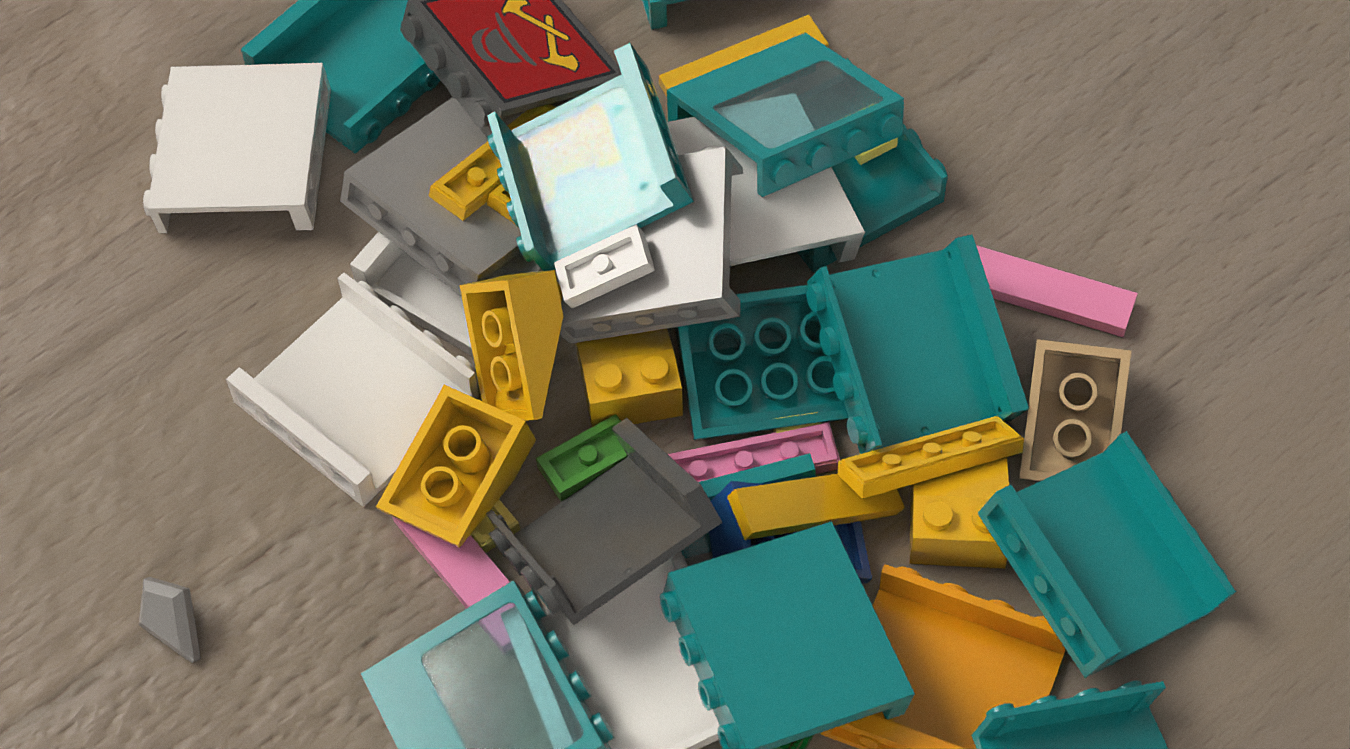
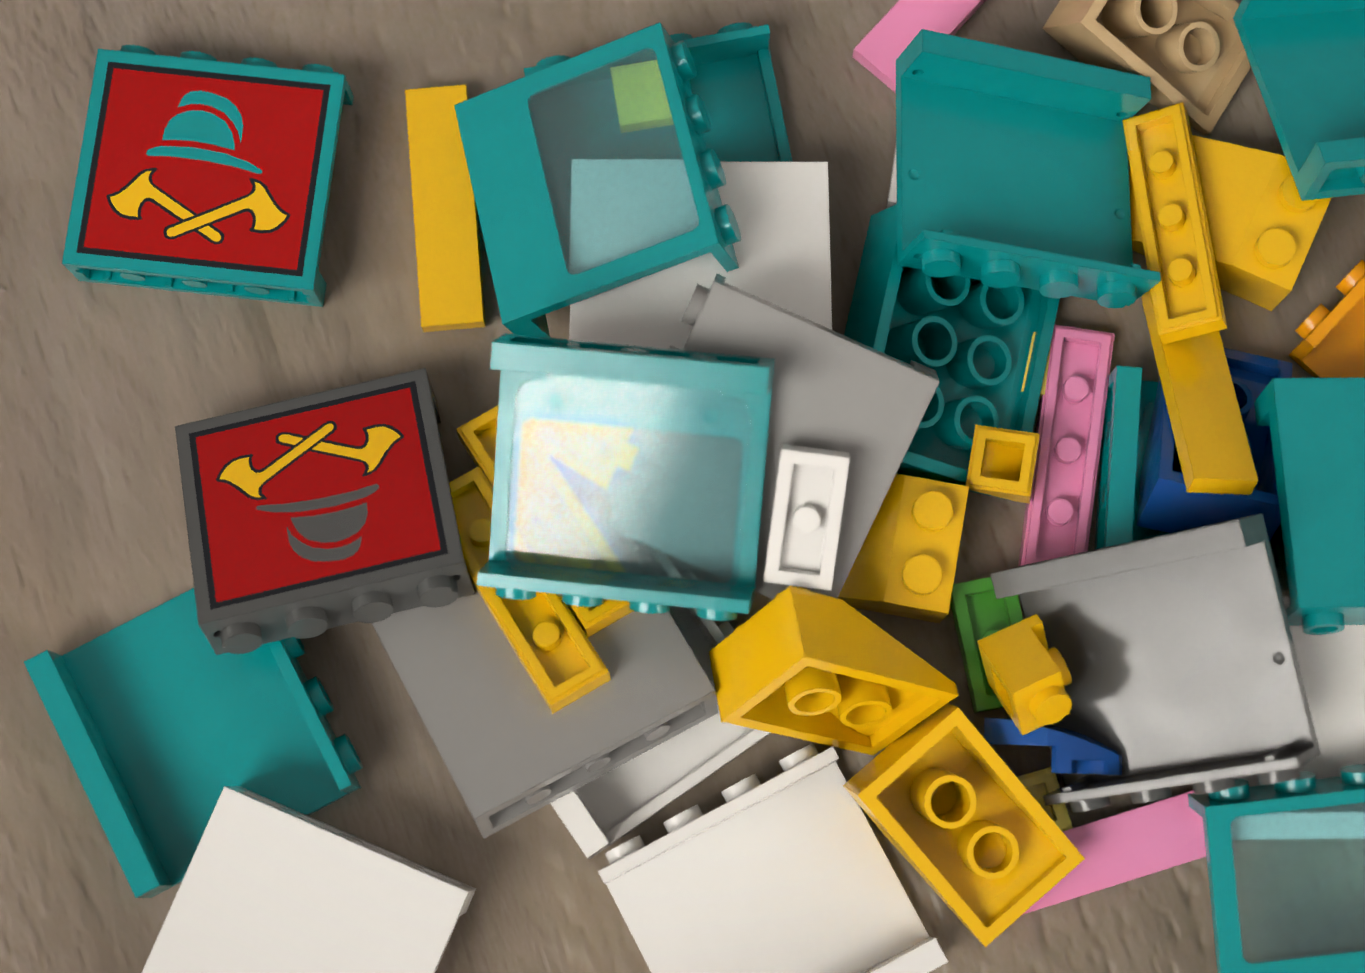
camera: 70 degrees left, 20 degrees up
(529, 508) = (1070, 750): none -> blue slope
(566, 458) = (1026, 674): none -> yellow brick
(712, 415) = (1003, 463): none -> yellow slope

